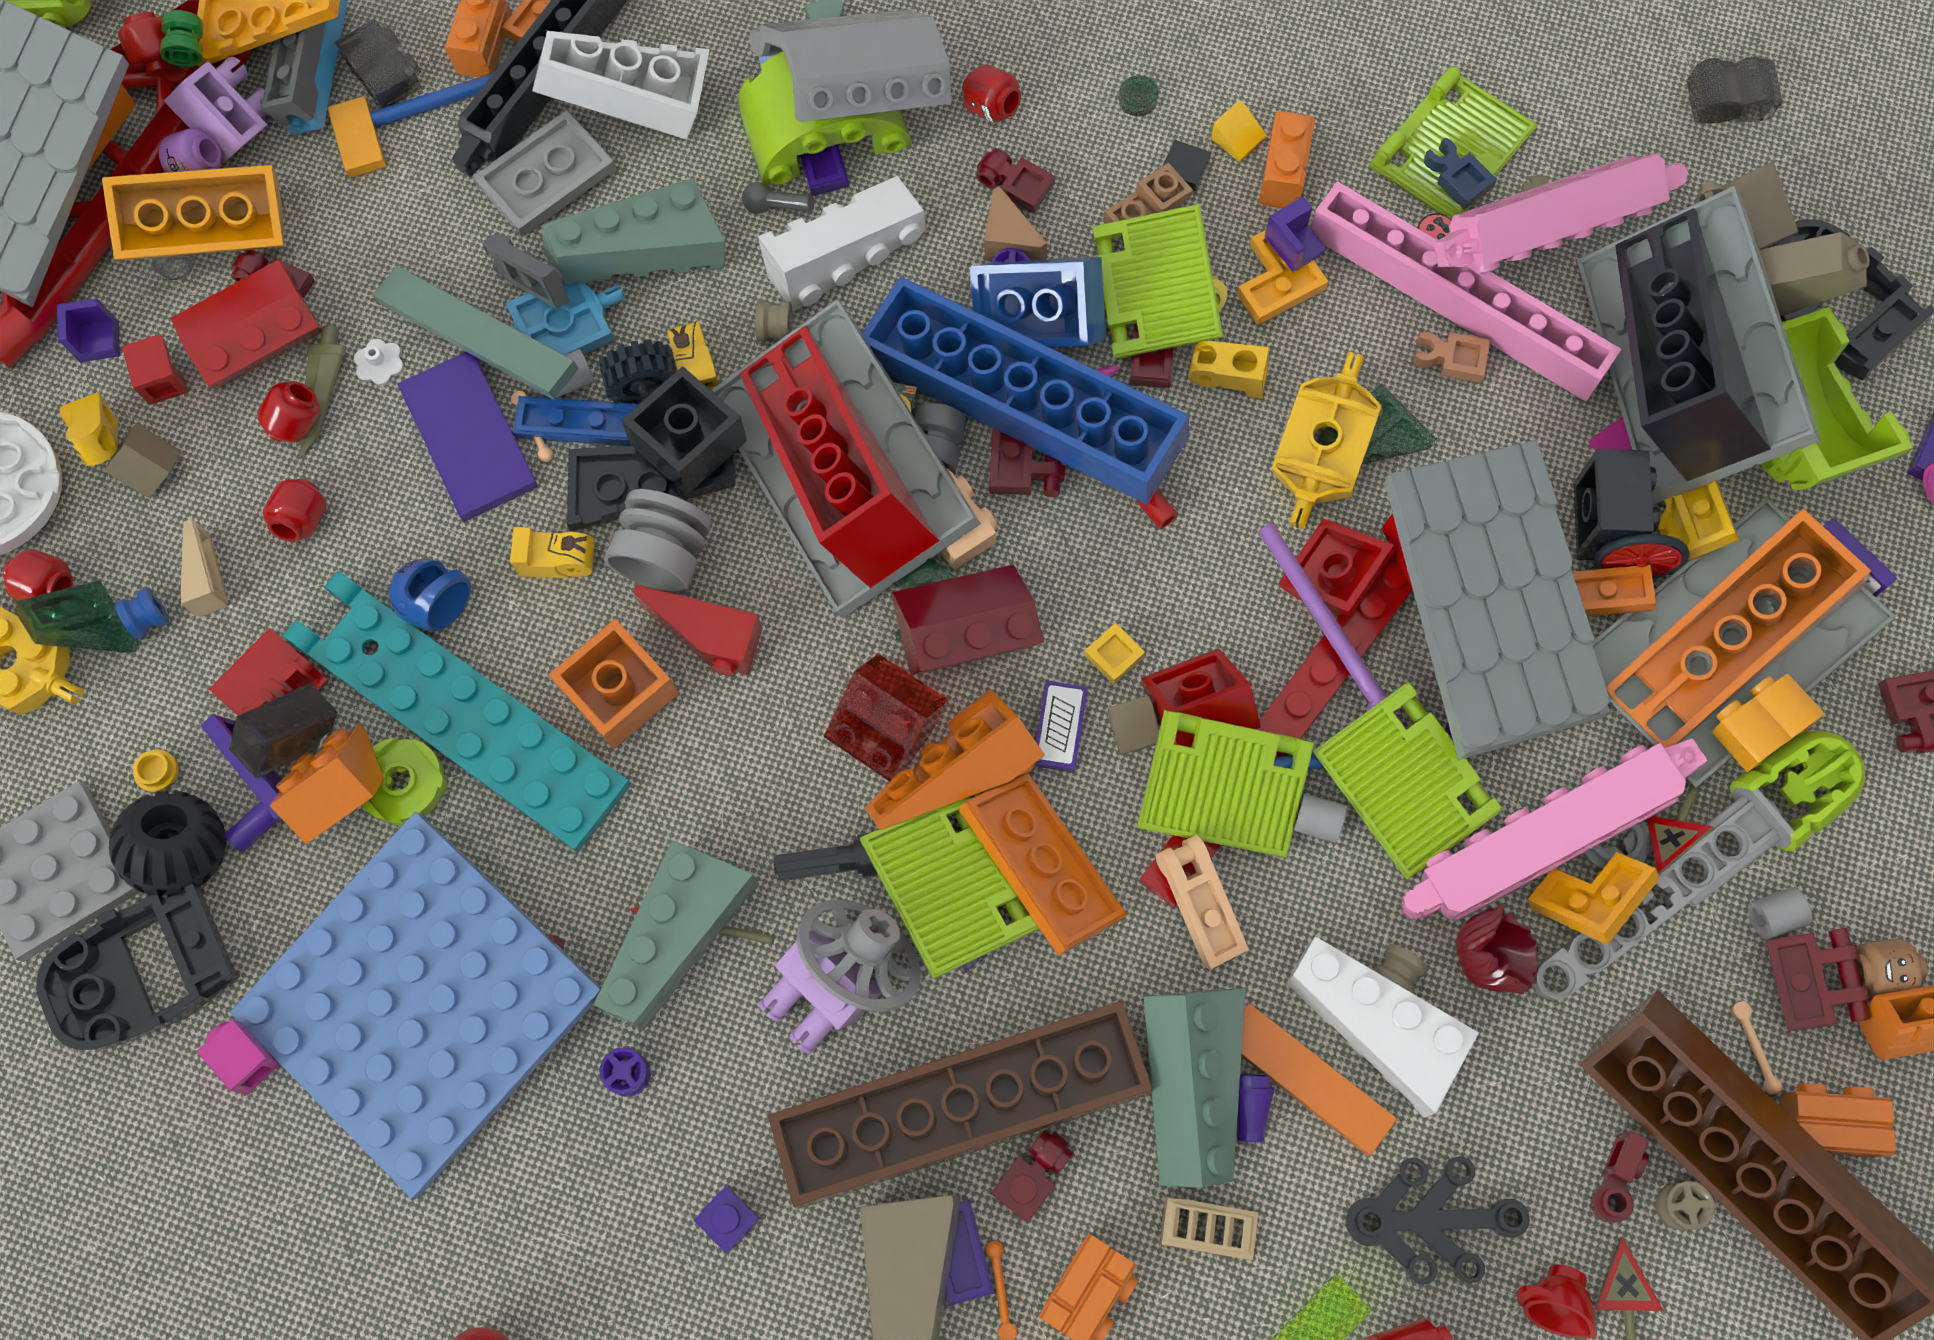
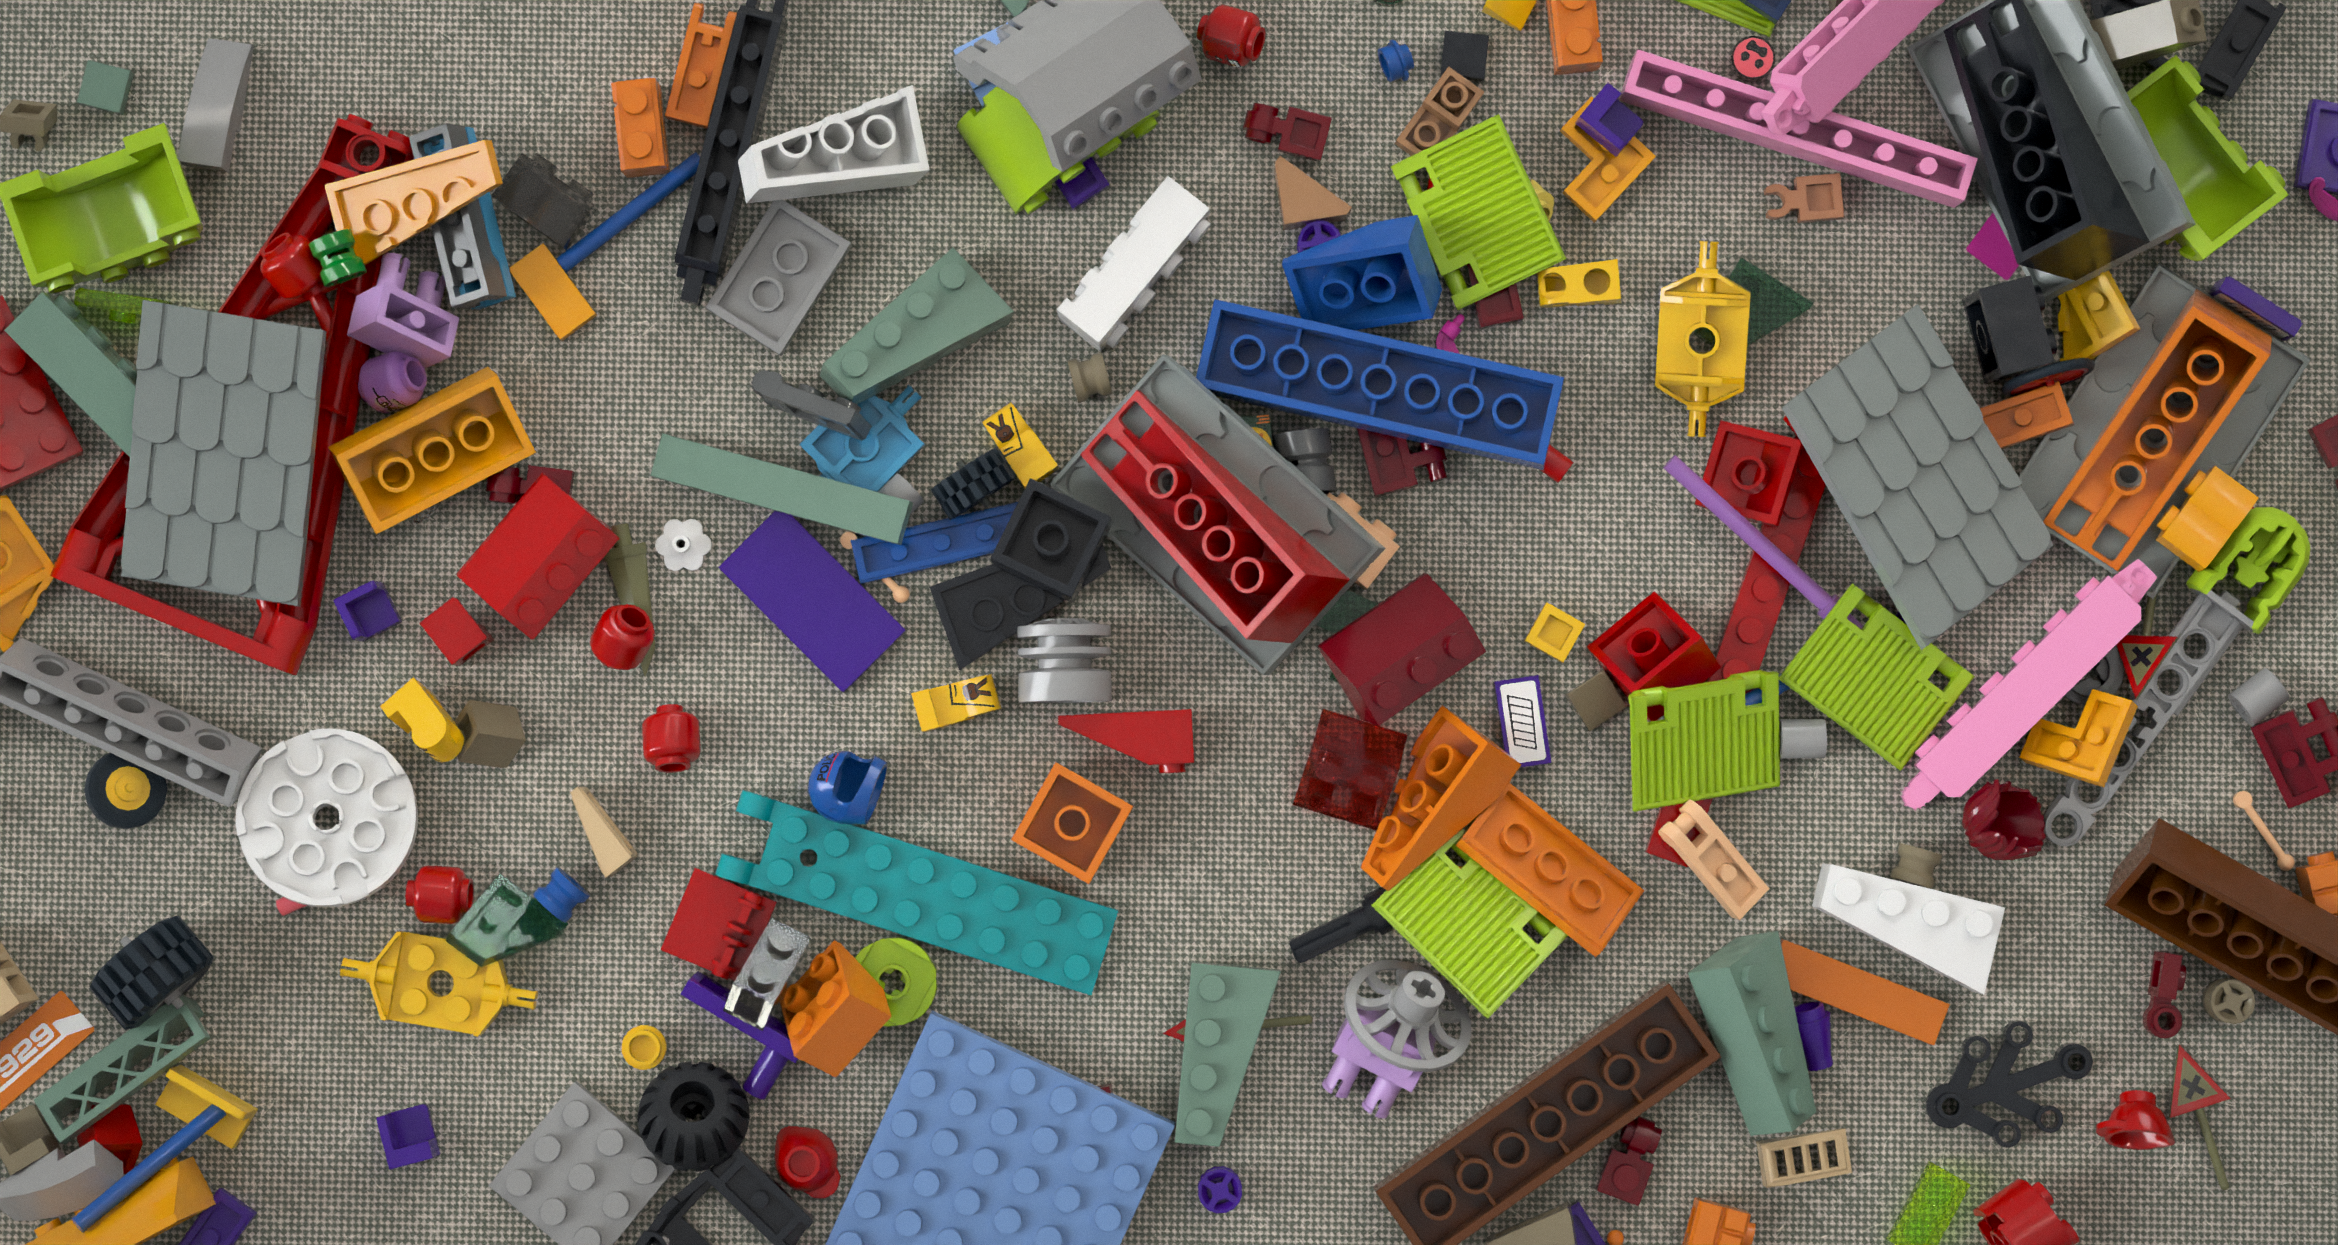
camera: 20 degrees left, 15 degrees up
(256, 923) = (807, 1161): none -> red piece
(759, 198) = (1018, 231): dark grey bar -> none
(1124, 151) = (1395, 61): none -> blue plate

